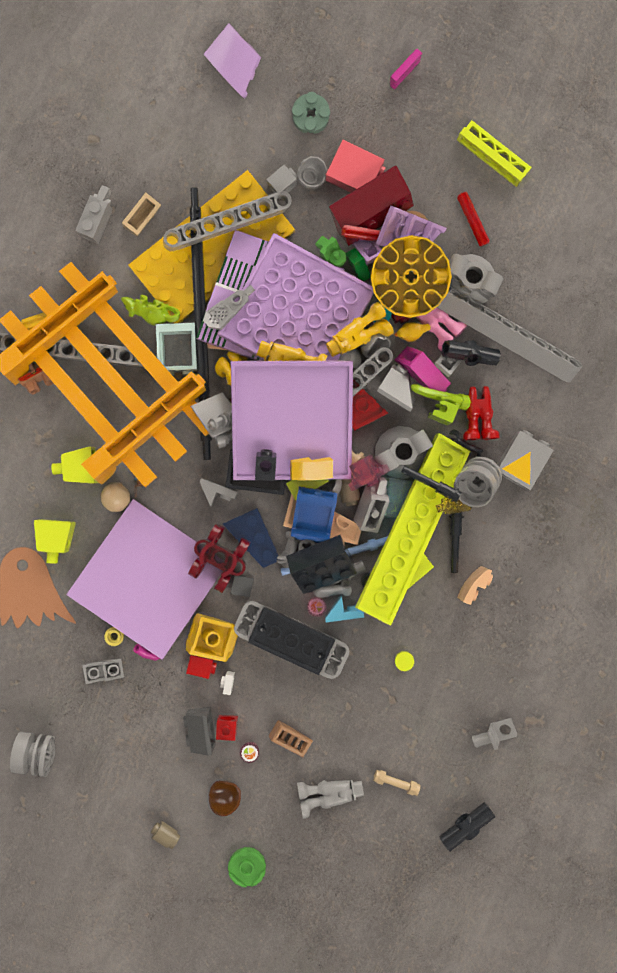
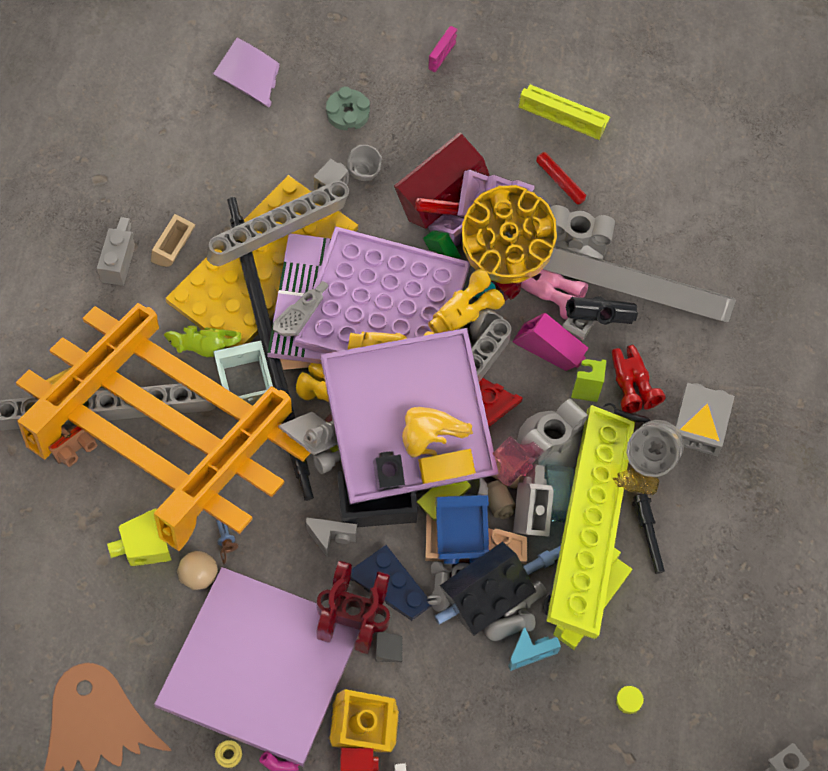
camera: 15 degrees left, 25 degrees down
(53, 537) = (124, 636): neon yellow torso -> none
(291, 640) = (473, 697): black piece -> none
(301, 436) = (425, 425): none -> yellow piece
(316, 606) = (494, 654): clear pink tile -> none
(331, 251) = (406, 233): bright green hips -> none
(353, 167) = (408, 148): coral brick -> none
(397, 387) = (526, 362): light grey slope -> none
(412, 331) = (525, 302): yellow animal -> none
(441, 488) = (613, 460): black pin -> none
(461, 399) = (575, 361): lime plant -> none
(479, 578) = (689, 577): light nougat slope -> none

